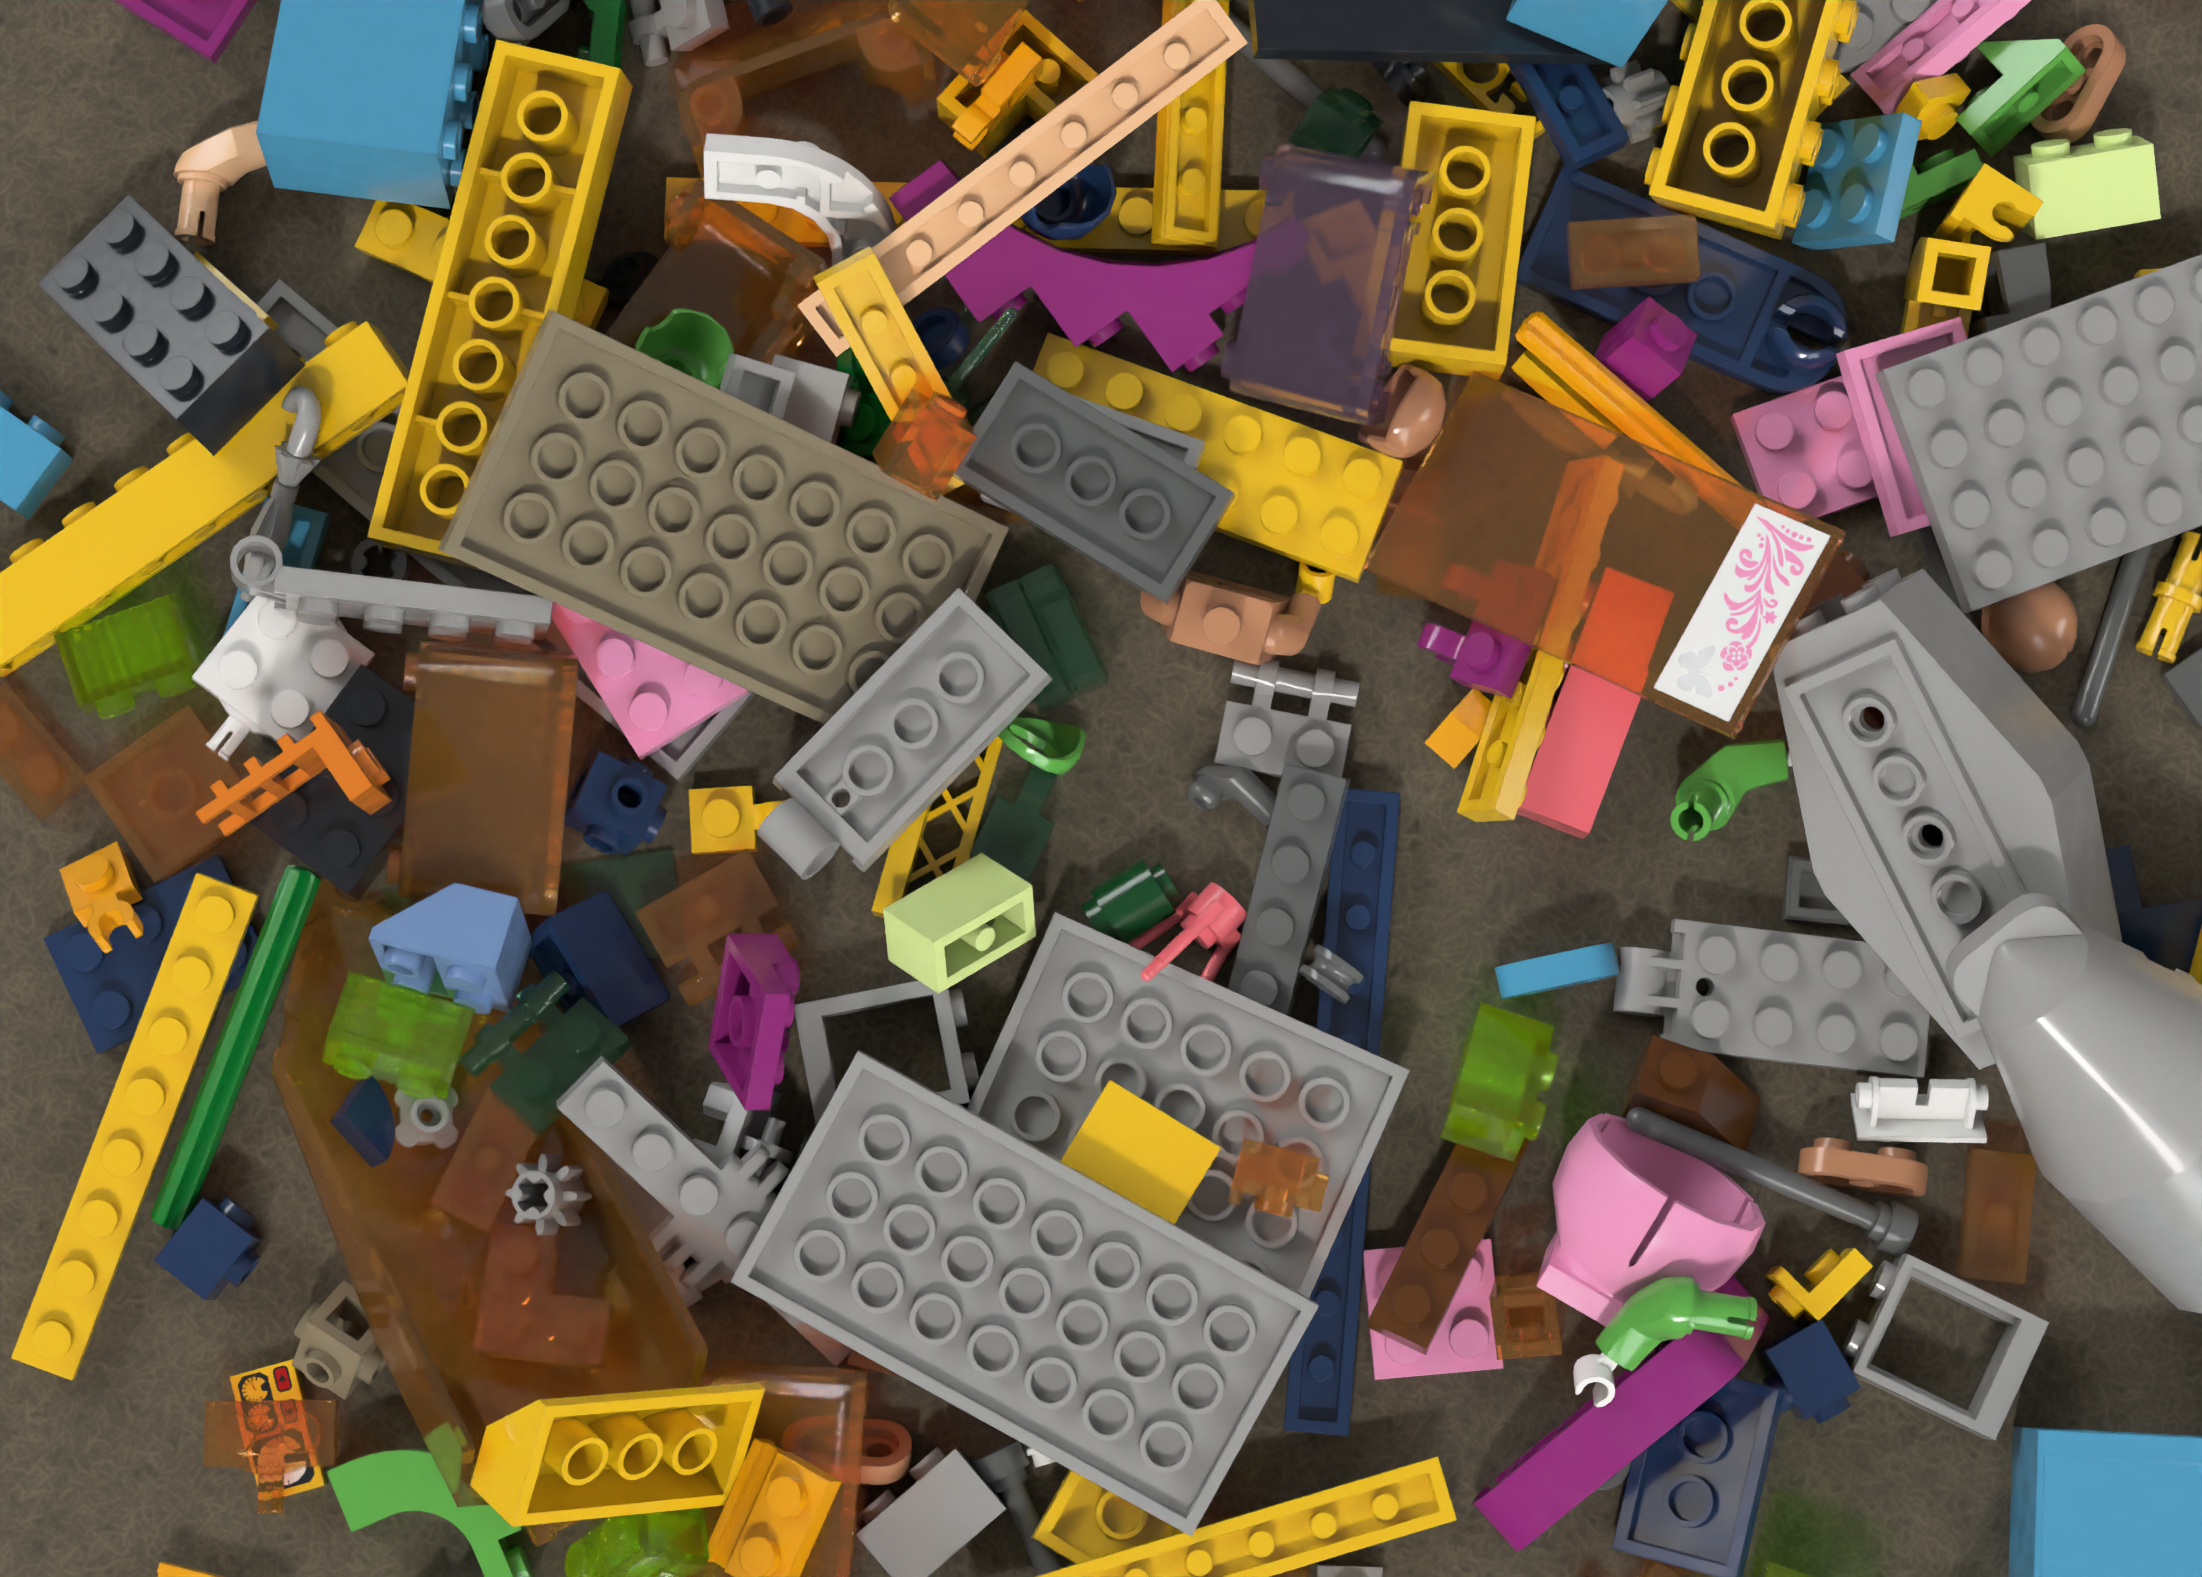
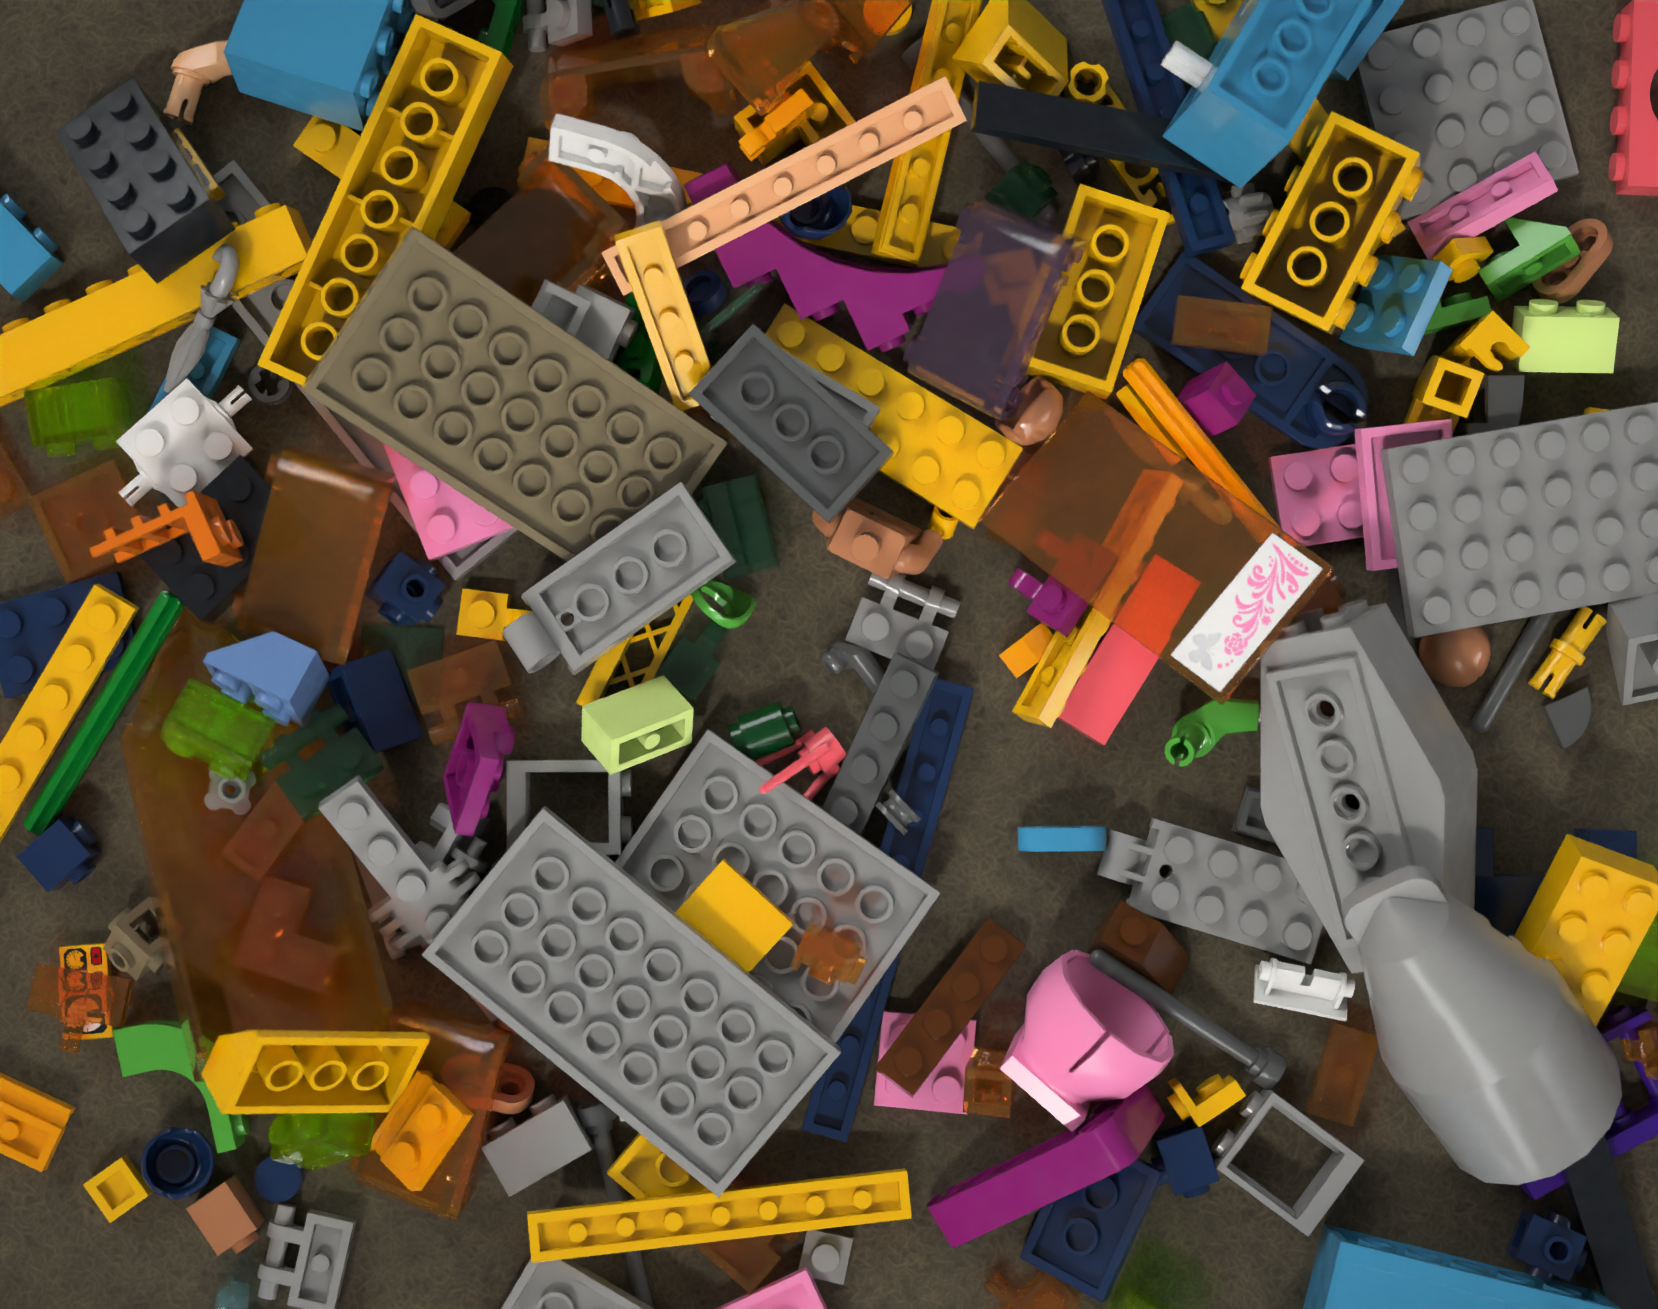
camera: 15 degrees right, 5 degrees up
(102, 893) = (26, 583): light orange plate -> none
(367, 1121) = (185, 787): dark blue tile -> none
(393, 602) = (264, 417): light grey hinge -> none
(548, 1194) = (306, 863): light grey gear -> none
(690, 344) = (516, 267): bright green hair -> none
(925, 442) = (675, 372): clear orange brick -> none
(1499, 1083) = (1004, 912): clear neon green brick -> none
(1657, 1314) = (1078, 1110): bright green arm -> none
(1888, 1172) = (1272, 1027): nougat plate -> none

